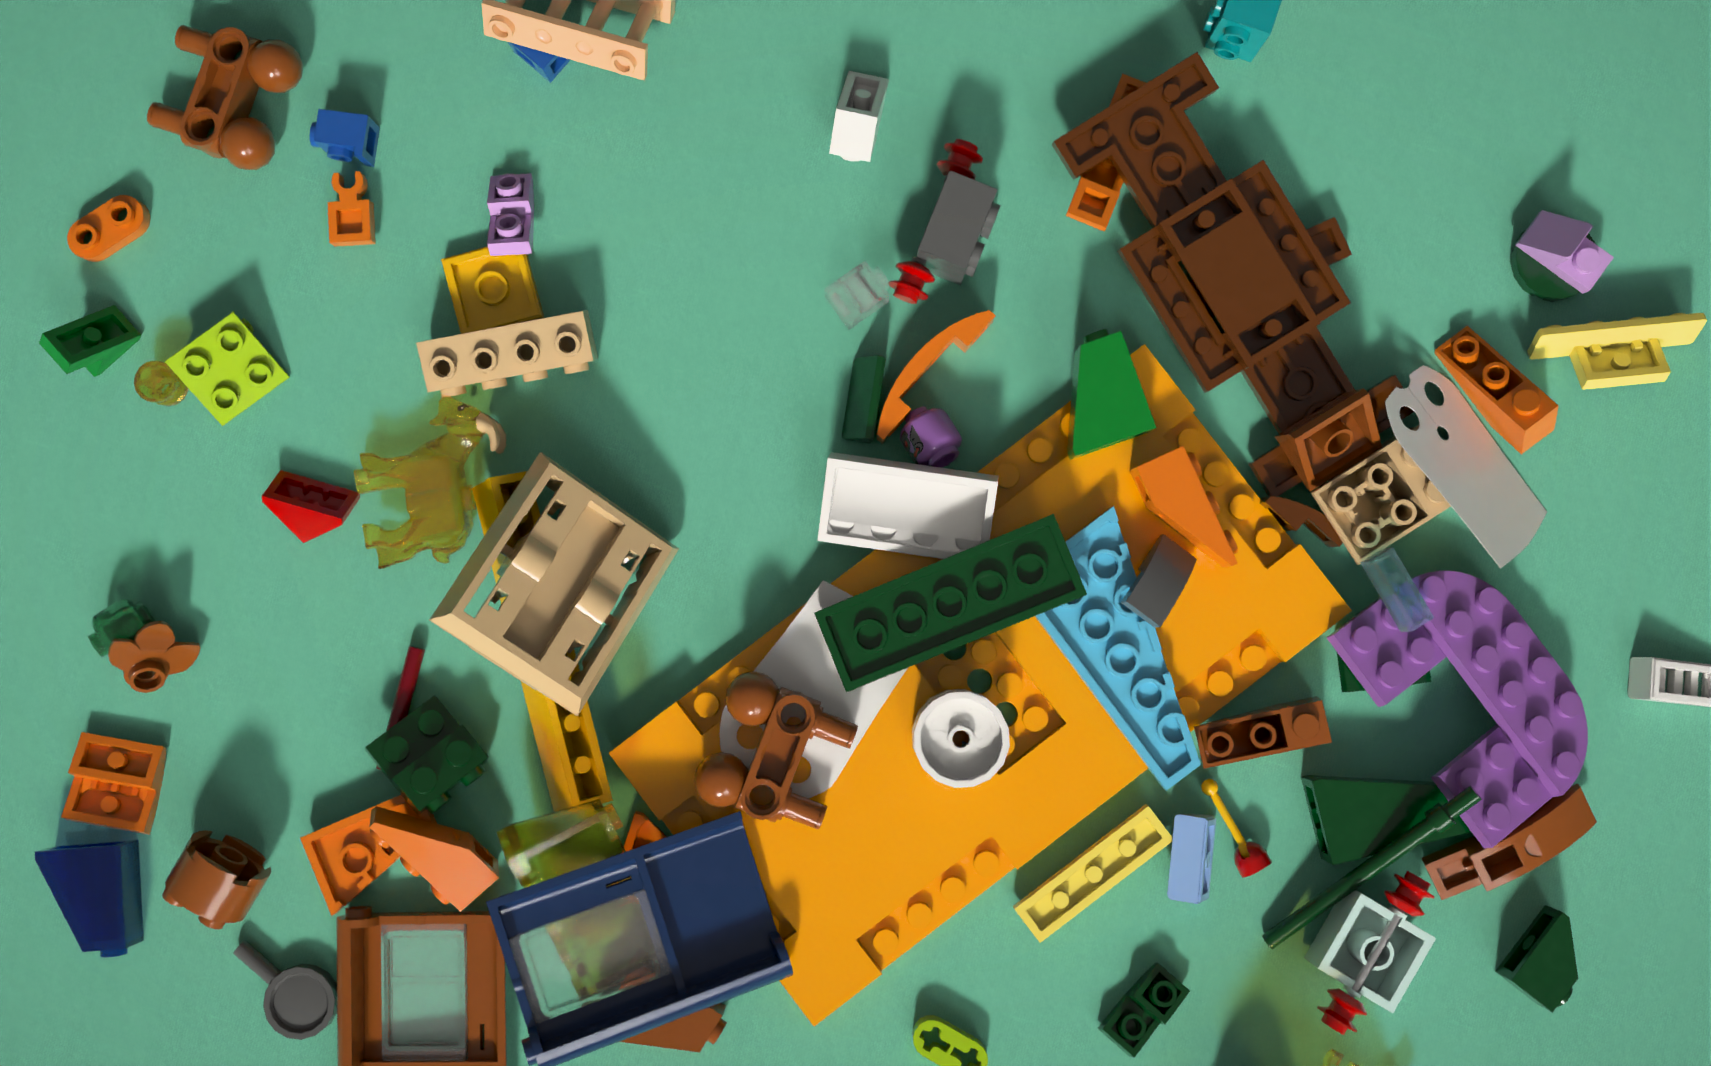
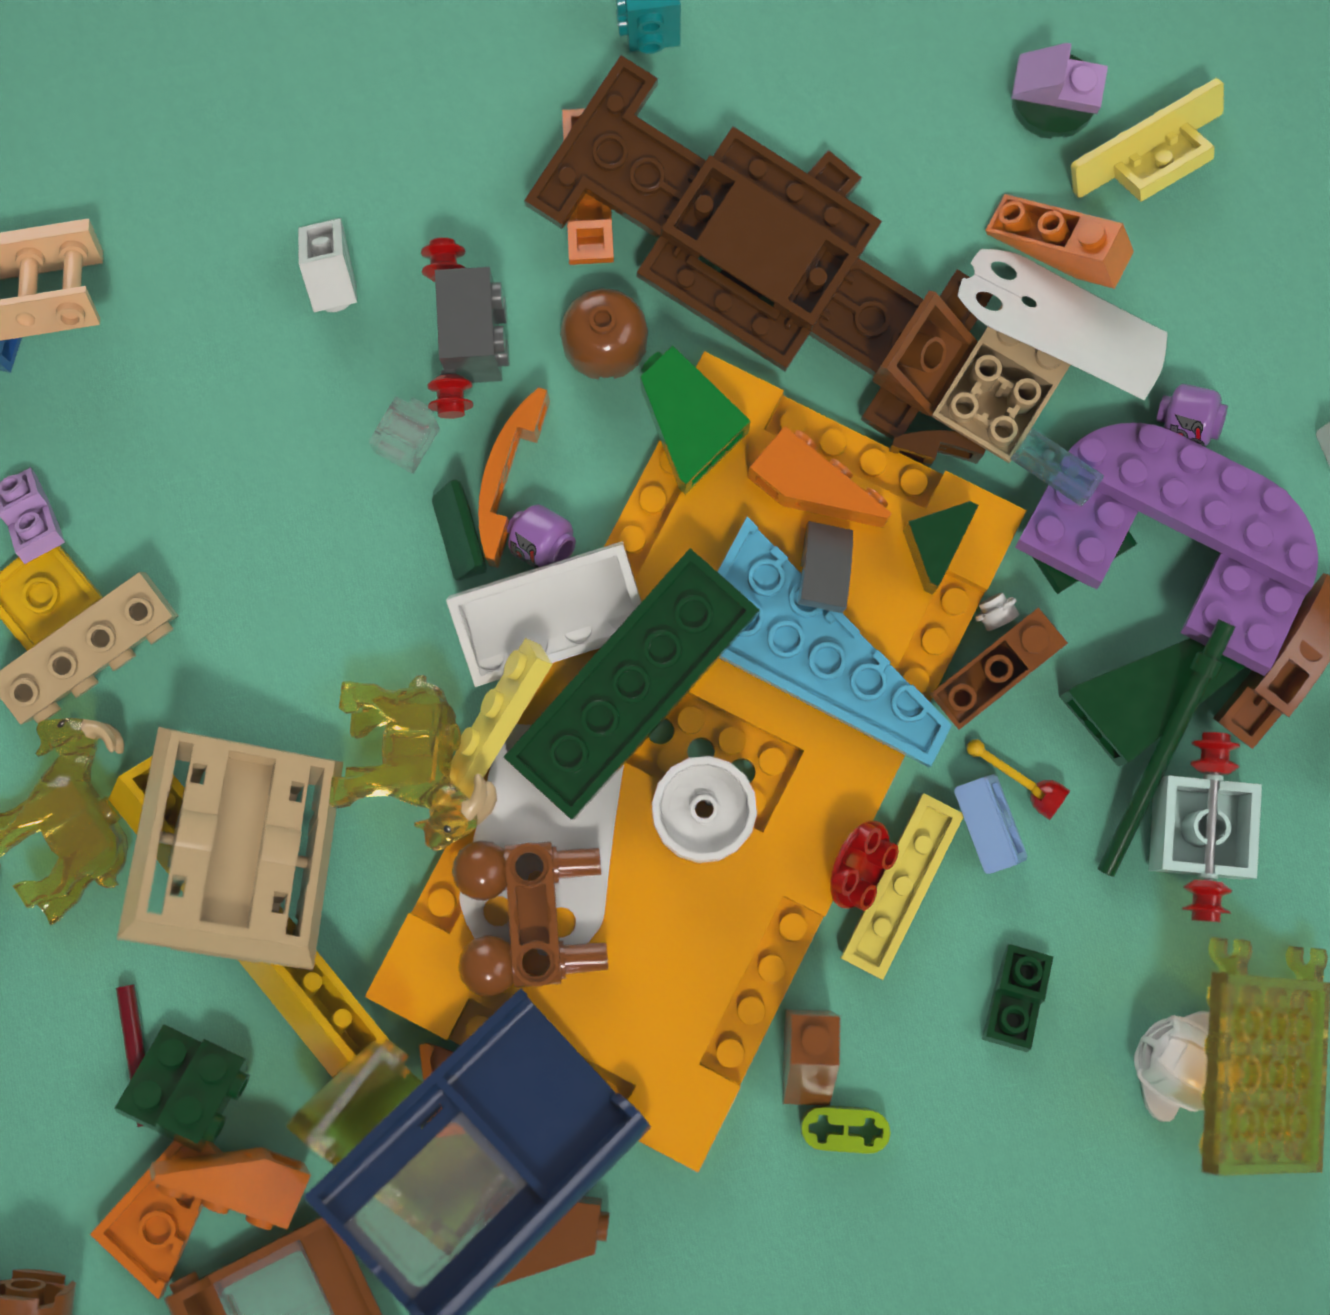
camera: 25 degrees left, 5 degrees down
(740, 578) = (415, 758): none -> clear yellow animal
(817, 581) = (499, 714): none -> light yellow plate
(952, 975) = (810, 1056): none -> dark orange slope
(1066, 286) = (604, 333): none -> dark orange cylinder
(1067, 843) = (861, 865): none -> red dish
(1262, 604) = (935, 541): none -> dark green slope
(1284, 683) = (997, 611): none -> white plate
(1535, 594) = (1193, 413): none -> medium lavender head

